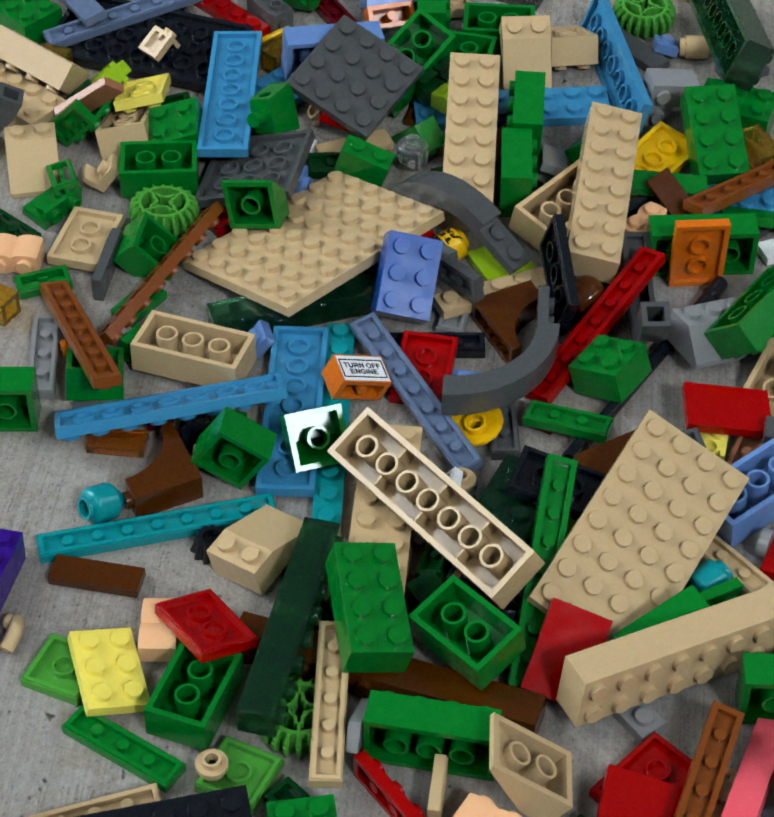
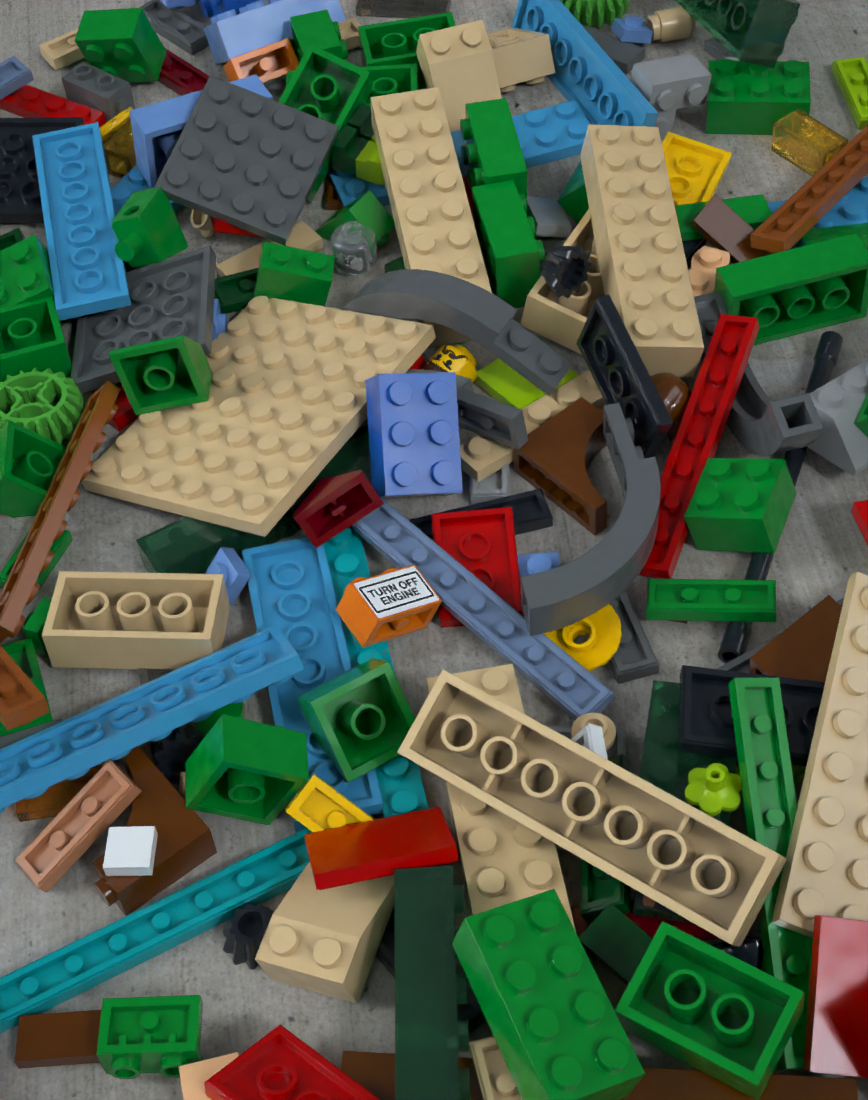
camera: 10 degrees left, 5 degrees up
(100, 503) = (65, 909): teal head -> none
(123, 457) = (78, 825): none -> nougat tile
(130, 579) = (149, 1035): none -> green bracket
(149, 476) = (130, 851): none -> white tile
(281, 488) = (323, 807): none -> yellow plate
(297, 507) = (378, 847): none -> red tile
(341, 310) = (336, 505): none -> dark red slope
(518, 518) = (713, 789): none -> lime plant
(545, 194) = (566, 269): none -> black piece
(698, 251) = (799, 304): orange plate -> none
(714, 132) = (750, 133): green brick -> none

